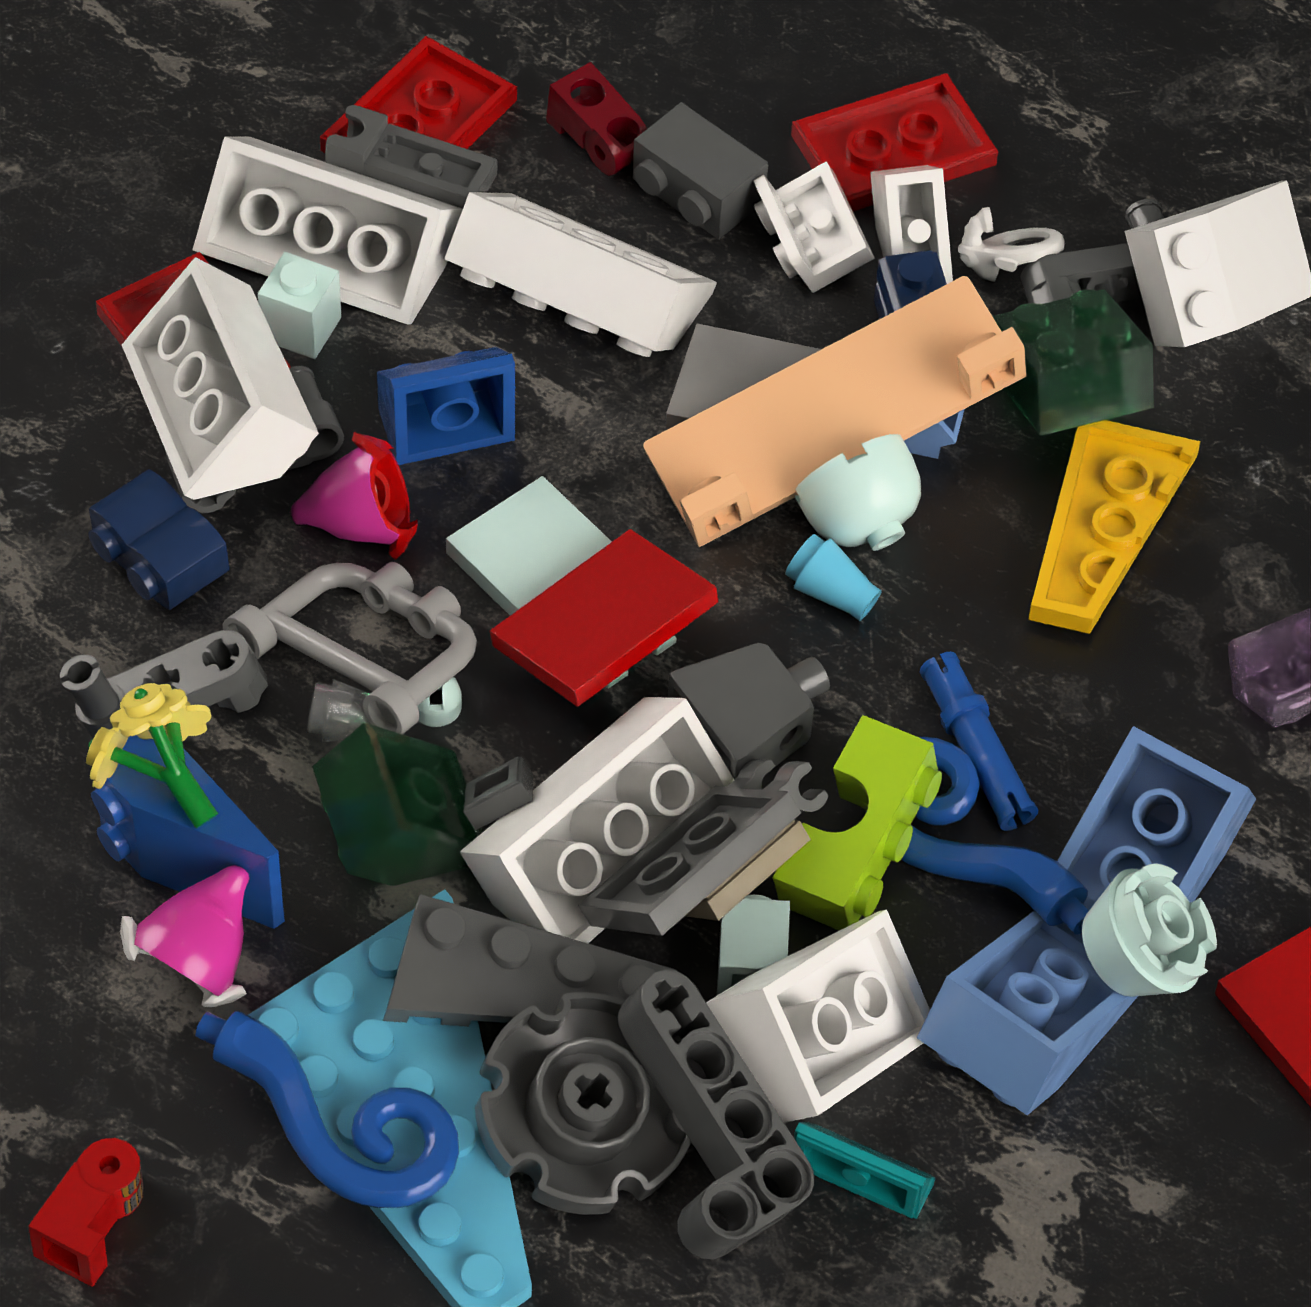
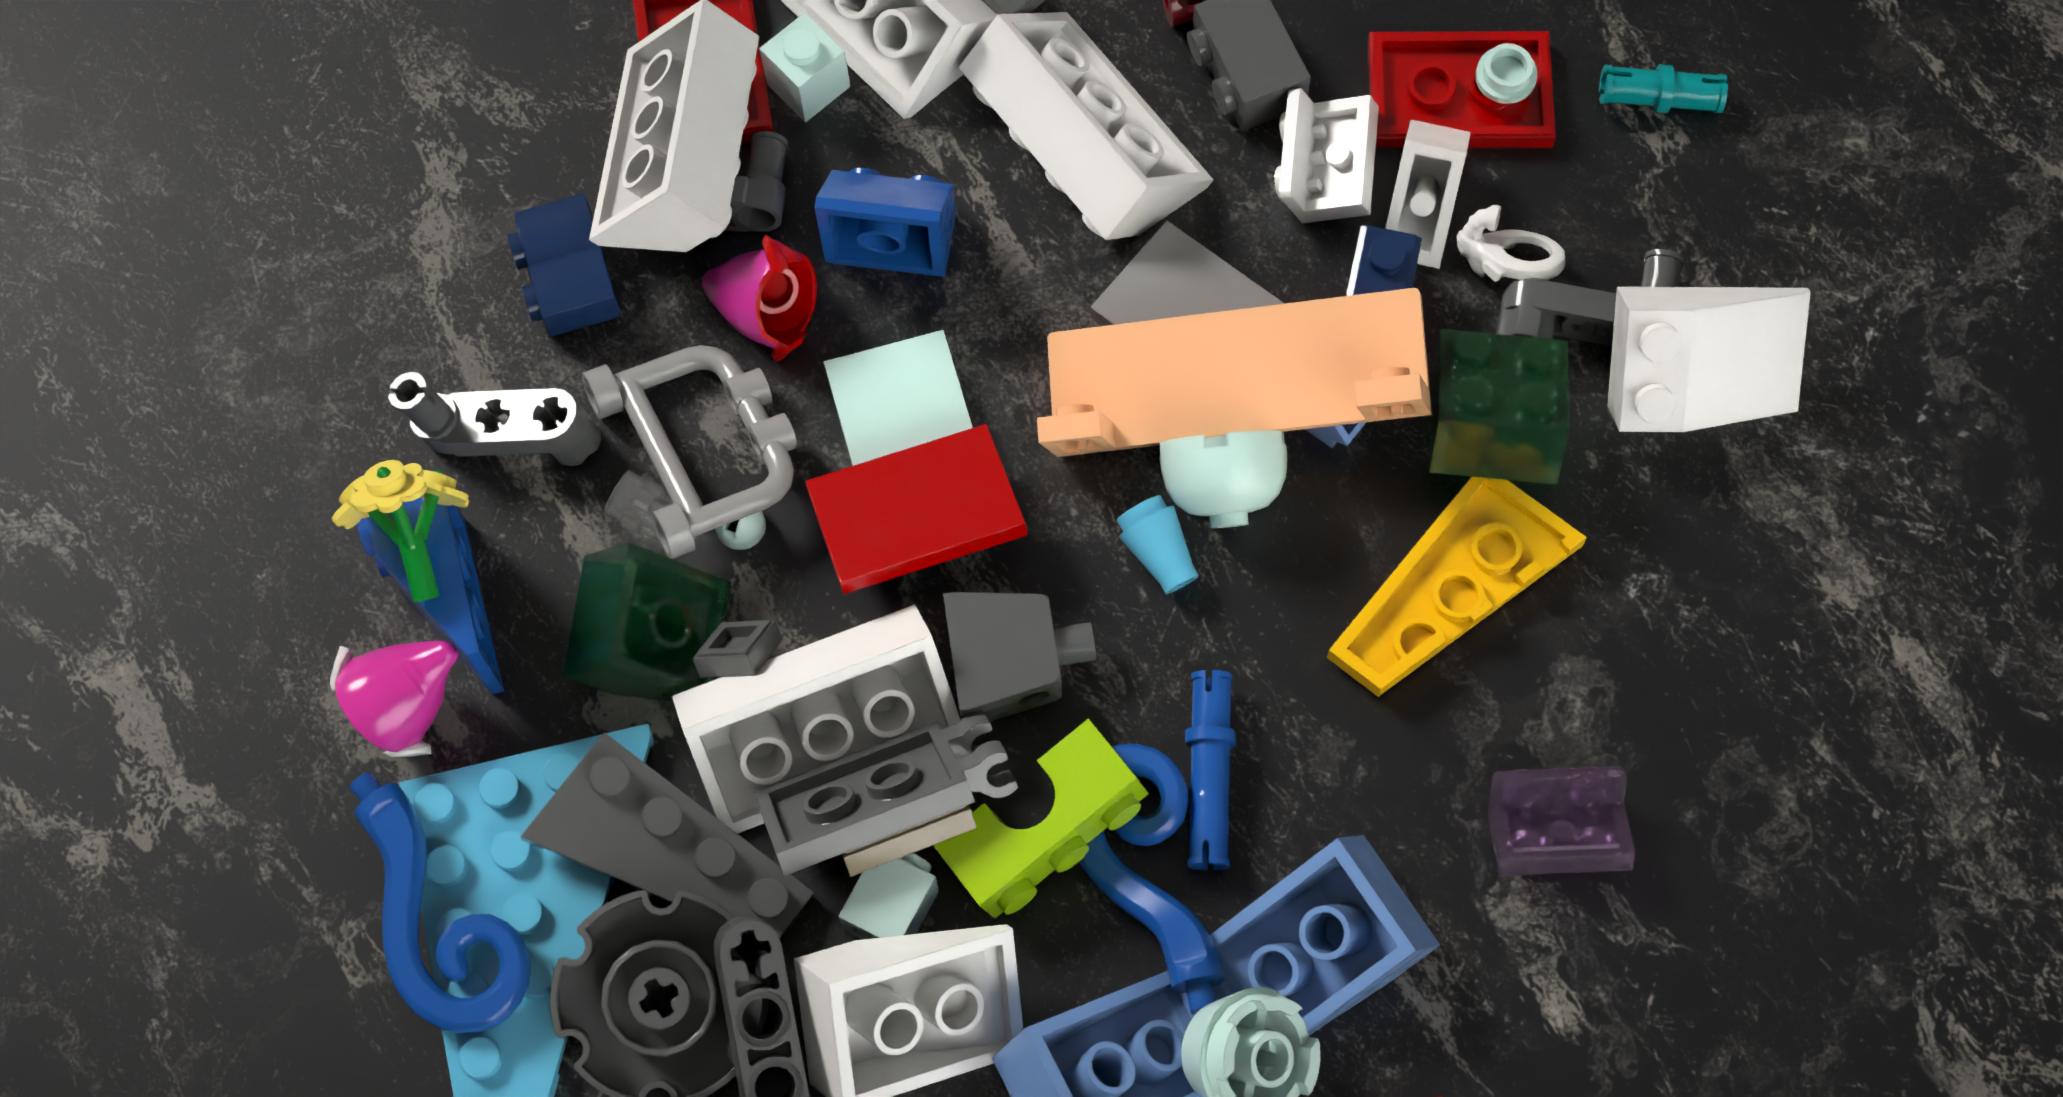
camera: 30 degrees right, 15 degrees up
(85, 1206) = (194, 908): red leg -> none
(933, 110) = (1506, 74): none -> light aqua plate
(1067, 85) = (1663, 88): none -> teal pin

